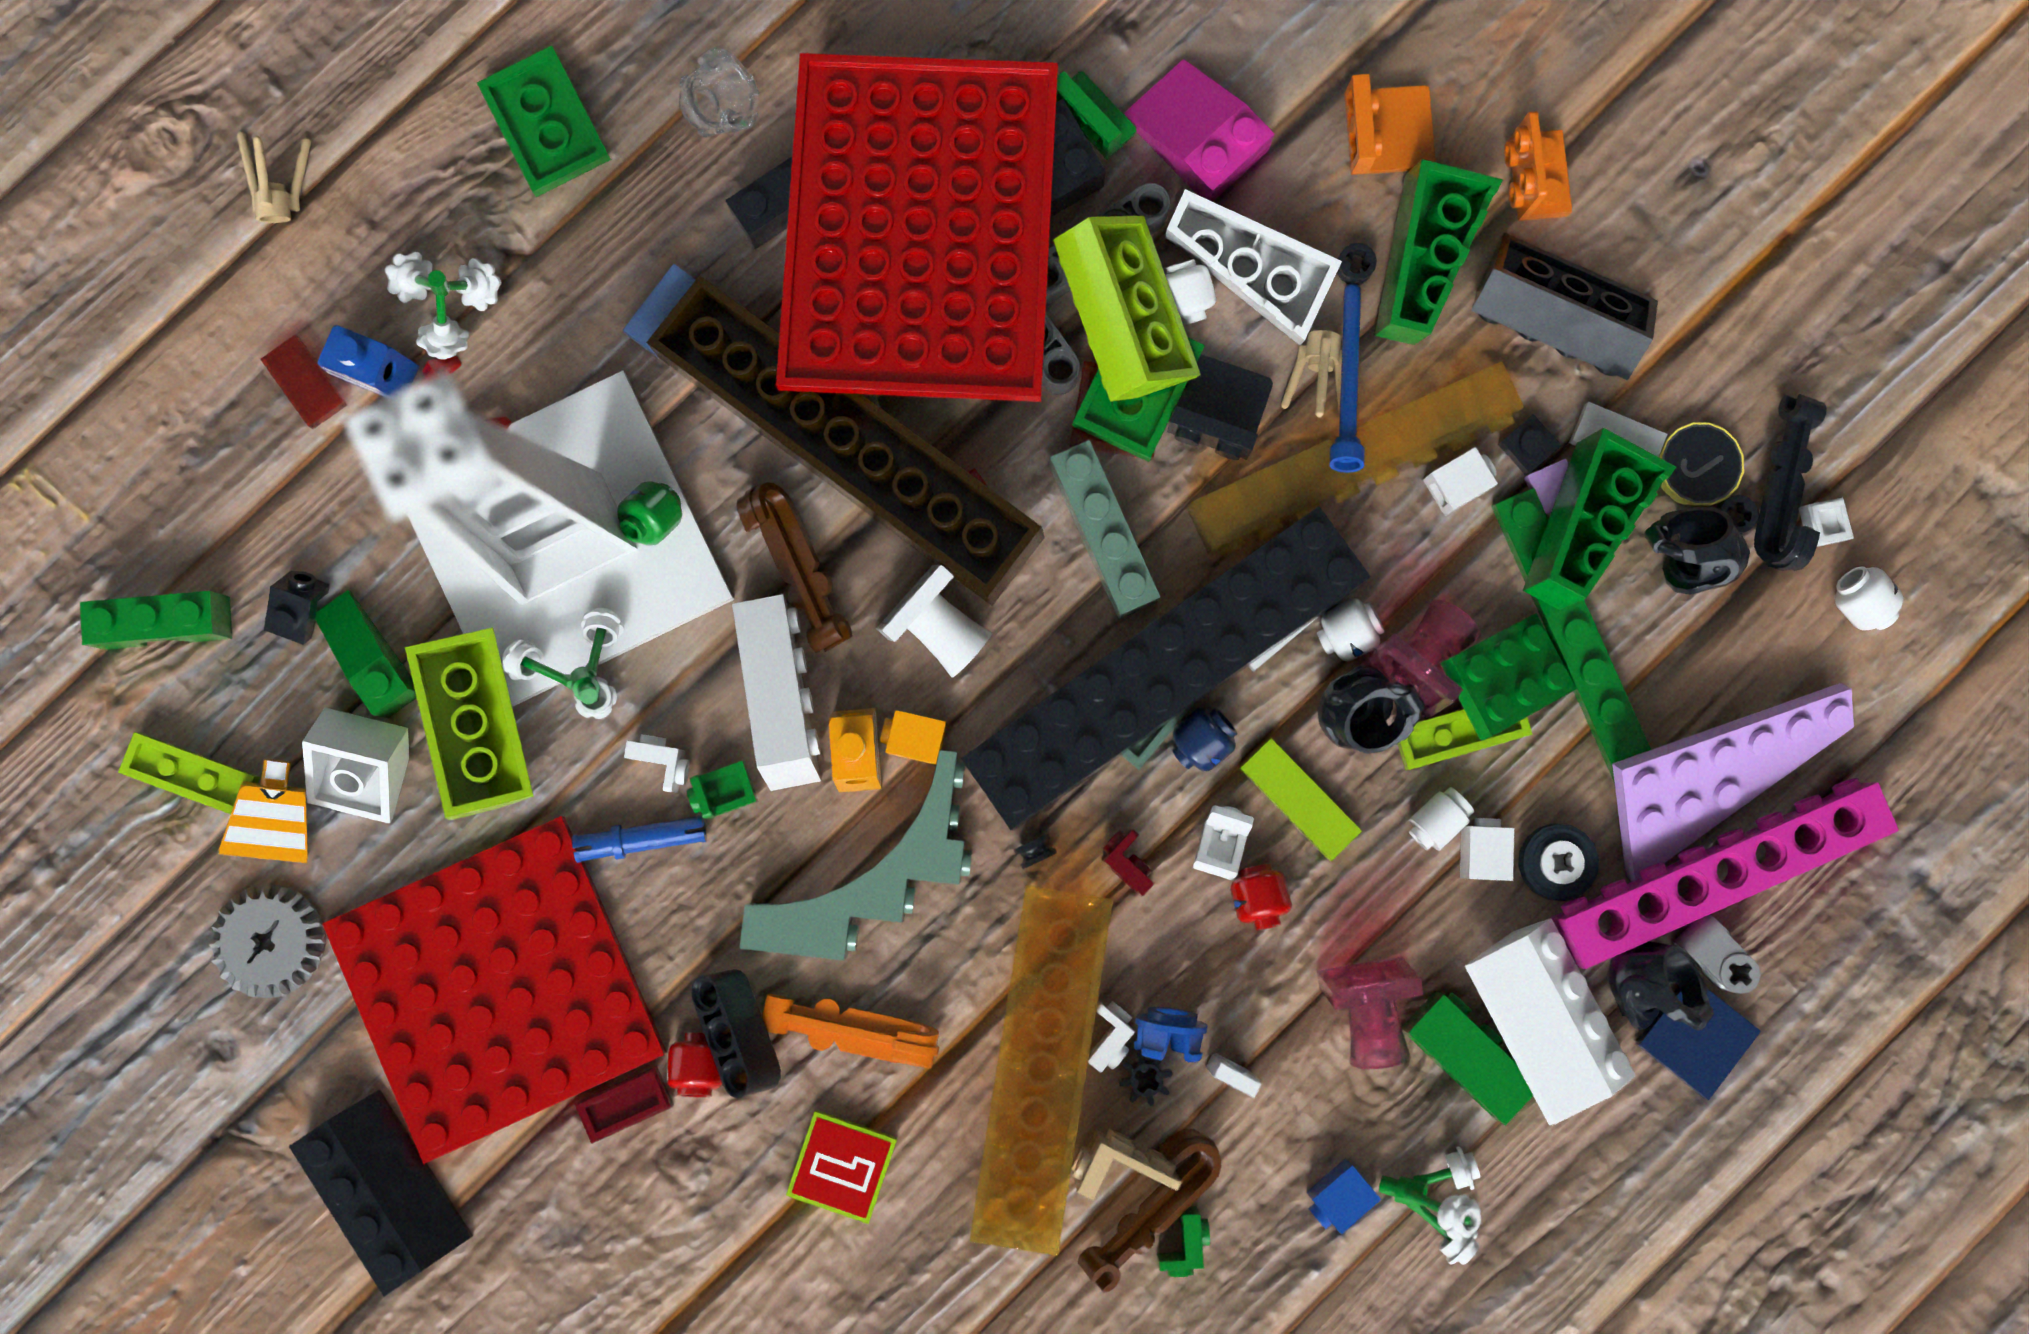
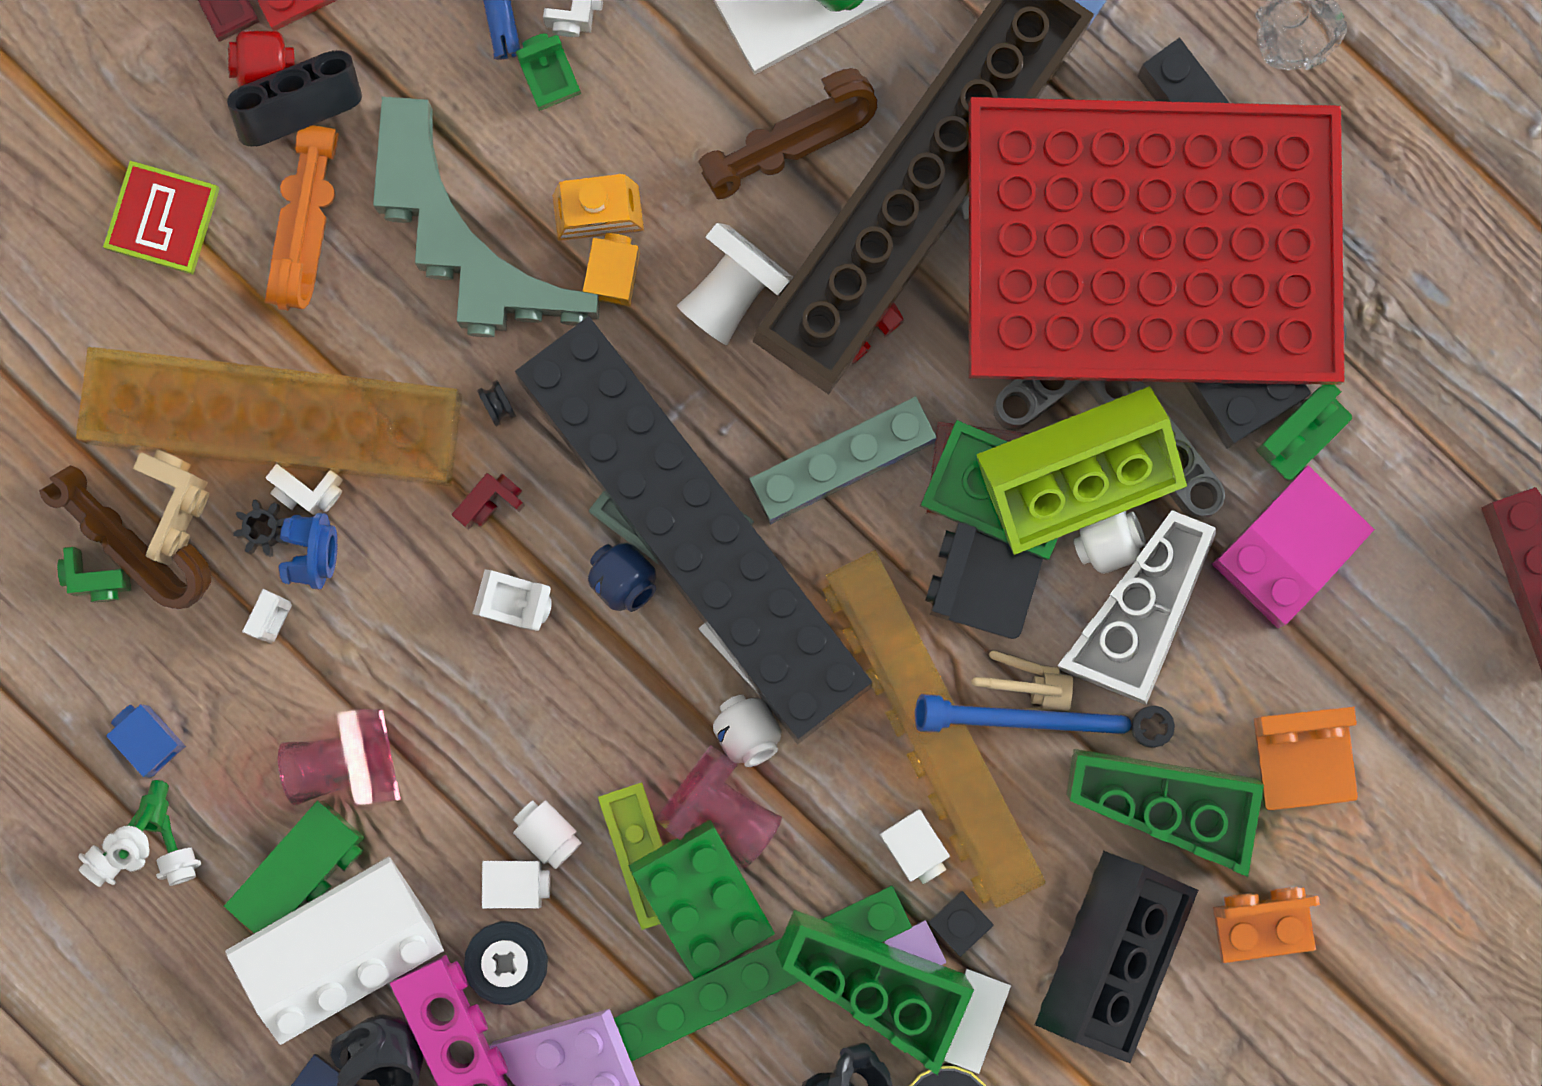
camera: 90 degrees right, 0 degrees up
(775, 692) = (653, 121): white wedge -> none
(1261, 896) = (456, 643): red head -> none
(1300, 799) = (563, 684): lime tile -> none
(1357, 708) = (658, 739): black helmet -> none

